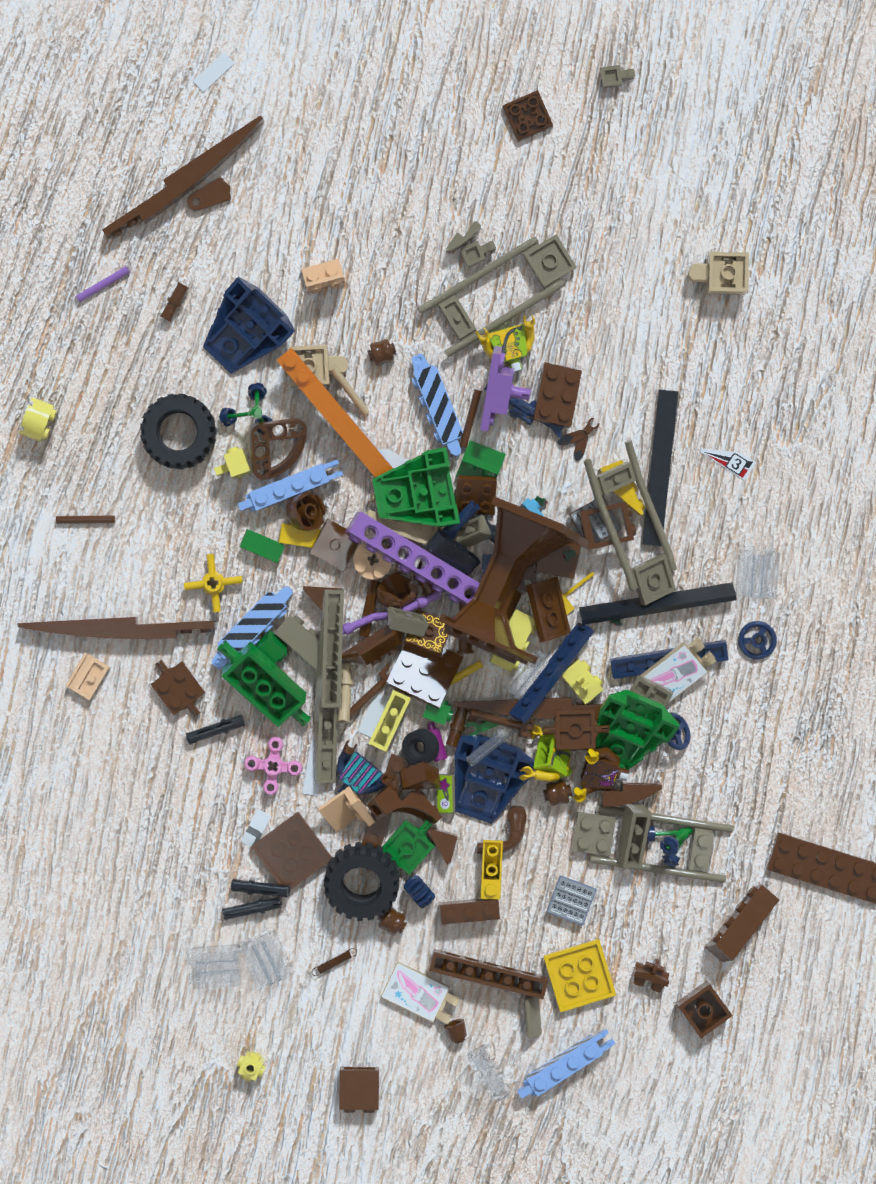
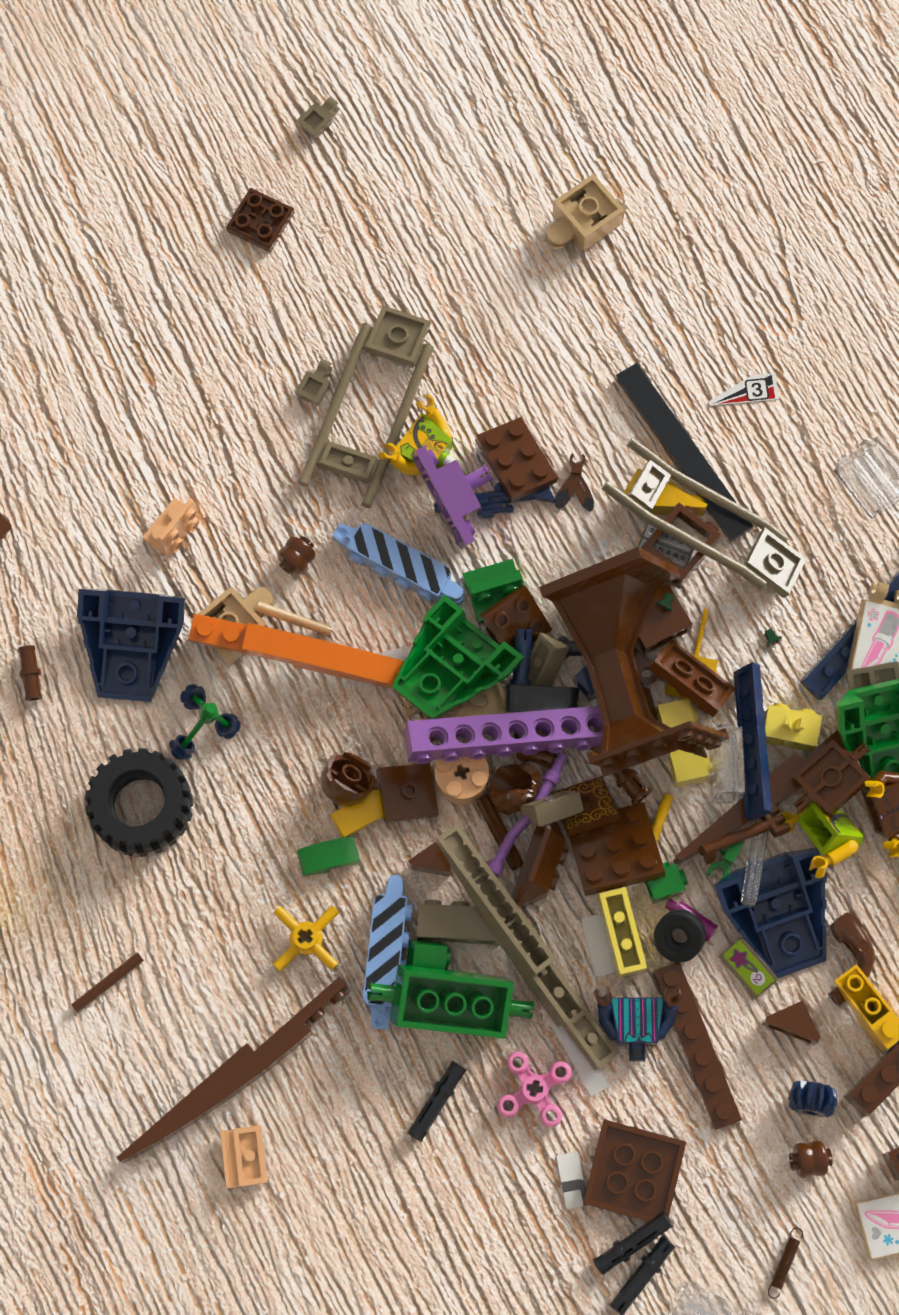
camera: 35 degrees left, 15 degrees down
(177, 688) = (357, 1089): reddish brown plate -> none
(236, 464) = (230, 787): light yellow brick -> none
(267, 435) = (241, 730): reddish brown beam -> none
(289, 487) = (306, 771): light blue hinge -> none
(344, 809) = (654, 1072): light nougat bracket -> none
(346, 684) = (563, 960): tan pin -> none
(361, 905) = (776, 1146): black tyre -> none
(371, 693) = (572, 961): reddish brown hinge -> none
(409, 845) = (757, 1059): green plate -> none
(413, 803) = (723, 1005): reddish brown arch -> none
(420, 777) = (706, 968): reddish brown slope -> none
(457, 726) = (700, 883): reddish brown pin -> none
(459, 241) = (289, 383): dark tan slope -> none
(470, 418) = (444, 550): reddish brown bar -> none
(557, 793) = (868, 867): reddish brown piece -> none
(669, 602) = (809, 577): black tile -> none

